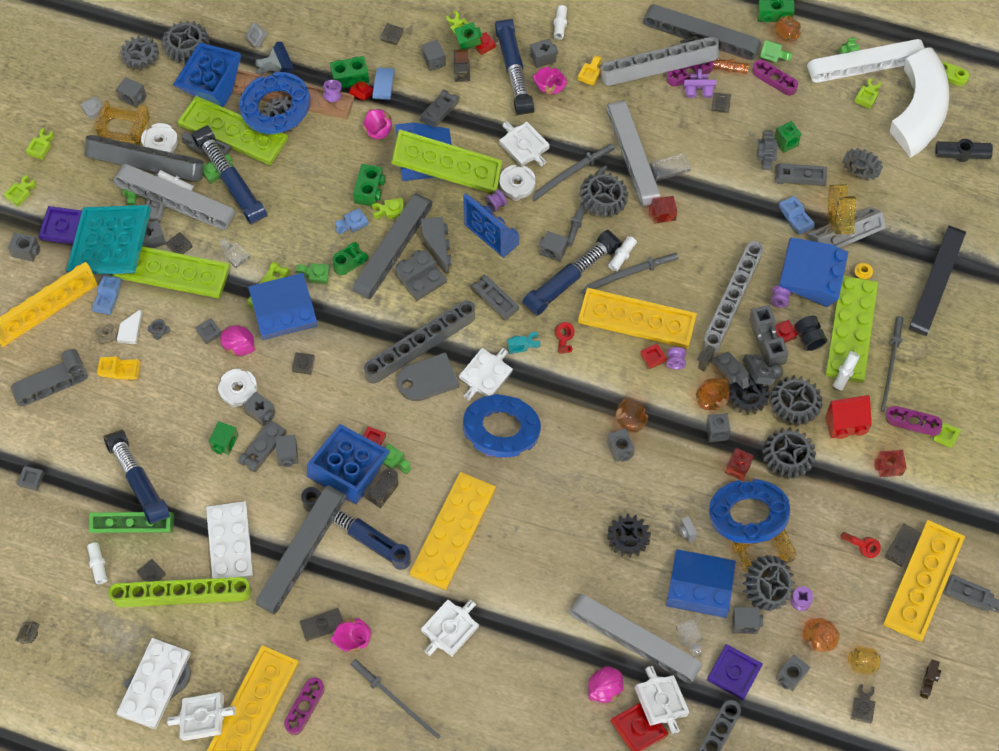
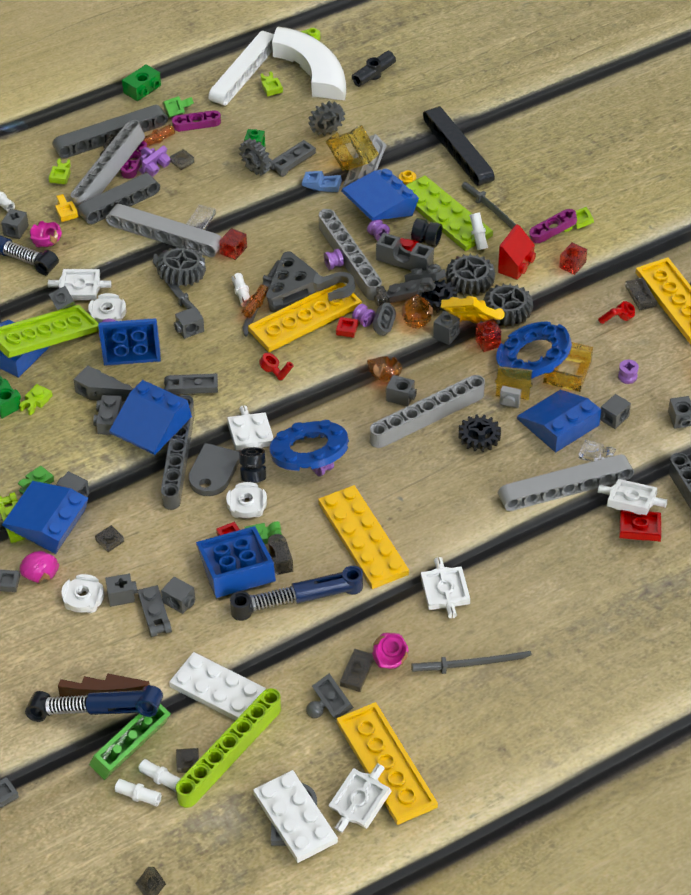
camera: 50 degrees left, 15 degrees down
(122, 564) = (159, 774): none -> white pin
(166, 473) = (92, 685): none -> reddish brown slope
(223, 438) = (119, 630): green brick -> none
(279, 627) = (331, 697): none -> dark grey plate
(291, 717) = (417, 717): magenta beam -> none
(300, 550) = (281, 636): dark grey beam -> none
(324, 302) = (74, 482): none -> dark grey brick
(351, 256) = (51, 450): green piece -> none
(354, 221) = (18, 427): medium blue plate -> none
(392, 246) = (73, 416): dark grey beam -> none
(416, 414) = (250, 509): none -> white plate
(425, 299) = (150, 417): none -> blue slope
(446, 402) = (252, 464): none -> black wheel
(492, 147) = (62, 298): none -> dark grey brick
(521, 343) = (249, 394): teal plate -> none
(539, 299) = (224, 328): piece -> none
(590, 158) = (138, 259): dark grey sword -> none
(605, 685) = (586, 524): dark pink hair -> none
(617, 272) = (255, 301): none -> clear orange pin
(624, 37) = (60, 173): none -> lime plate
(624, 488) = (427, 411): none -> light grey beam
(637, 96) = (125, 194): none -> dark grey beam
(653, 289) = (301, 277): none -> dark grey piece
(685, 376) = (384, 319): none -> dark grey plate
(702, 521) = (514, 378): none -> clear yellow piece
(716, 290) = (333, 259): none -> medium lavender wheel
(734, 672) = (648, 444): dark purple plate -> none
(742, 432) = (471, 309): none -> yellow plate
(762, 592) = (600, 376): dark grey gear -> none
(788, 28) = (167, 86): clear orange head -> none
(821, 634) = (666, 379): clear orange hair -> none
(848, 47) = (223, 66): bright green plate -> none

